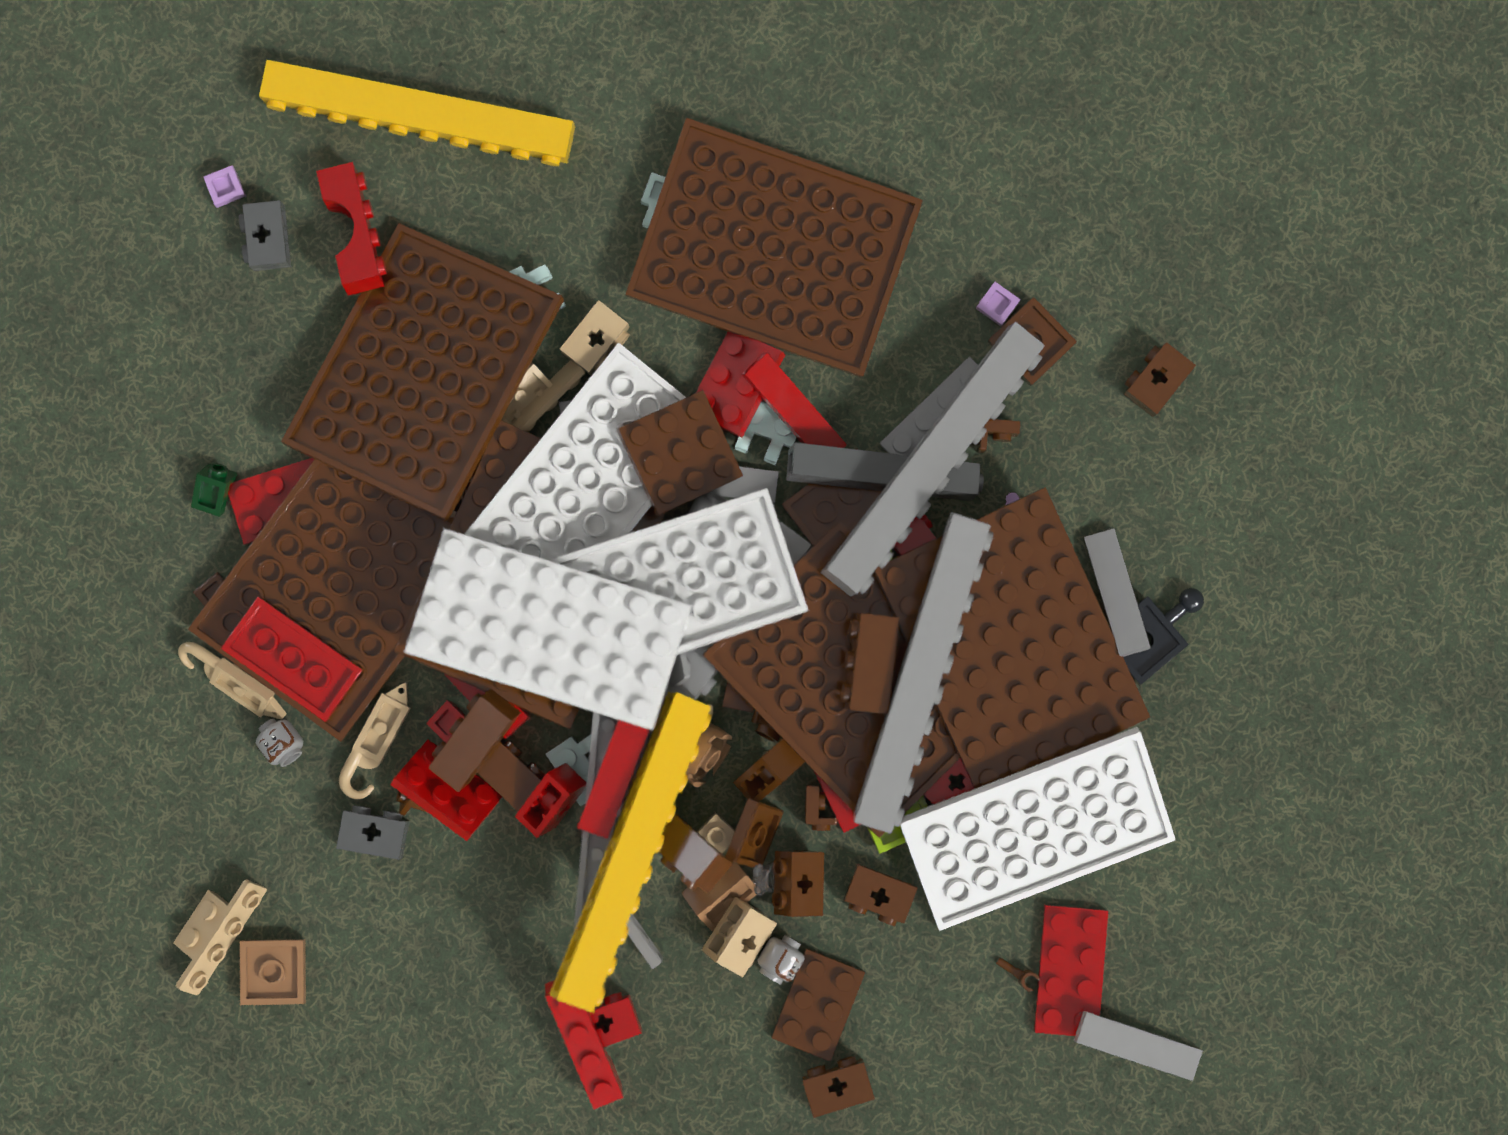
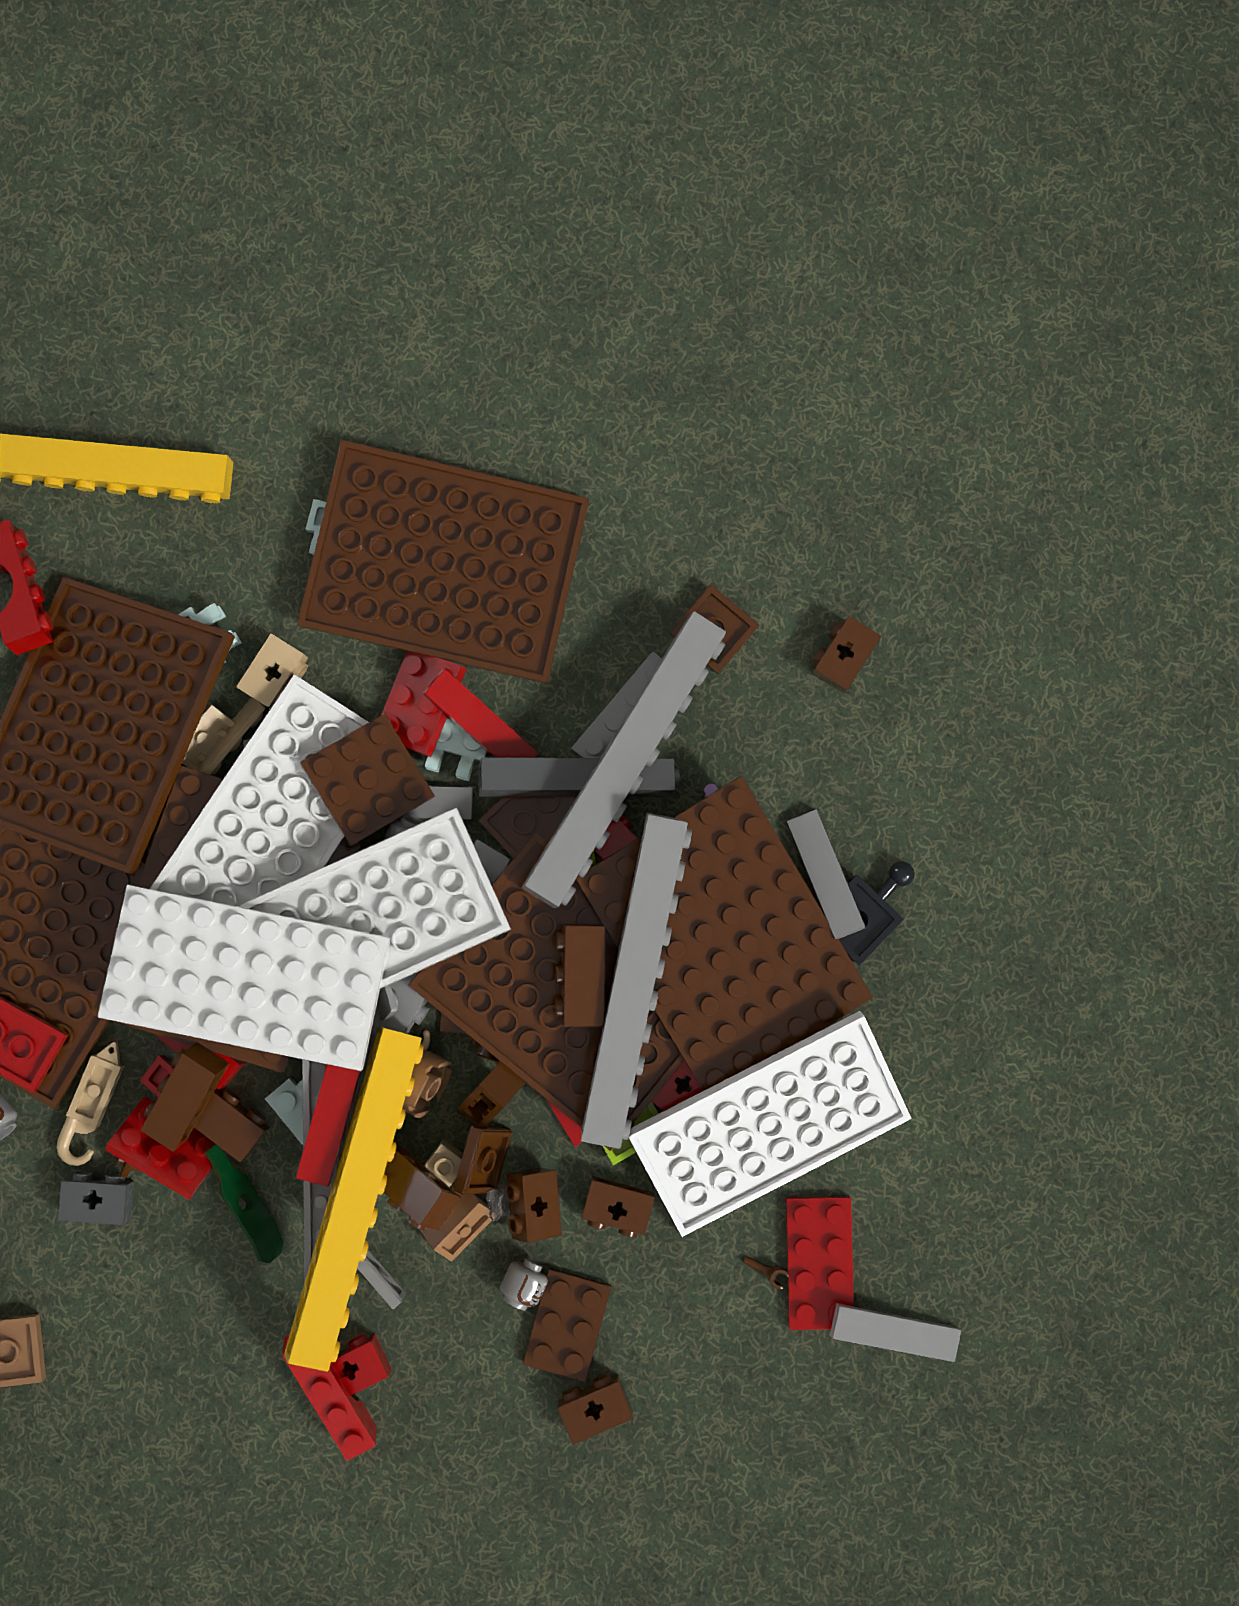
camera: 10 degrees left, 0 degrees up
(524, 866) = (255, 1218): none -> dark green piece
(551, 800) = (272, 1147): red brick -> none
(739, 937) = (478, 1266): tan brick -> none
(814, 803) = (543, 1119): reddish brown bracket -> none
(997, 303) = (675, 595): lavender plate -> none
(1001, 430) = (691, 722): reddish brown bracket -> none

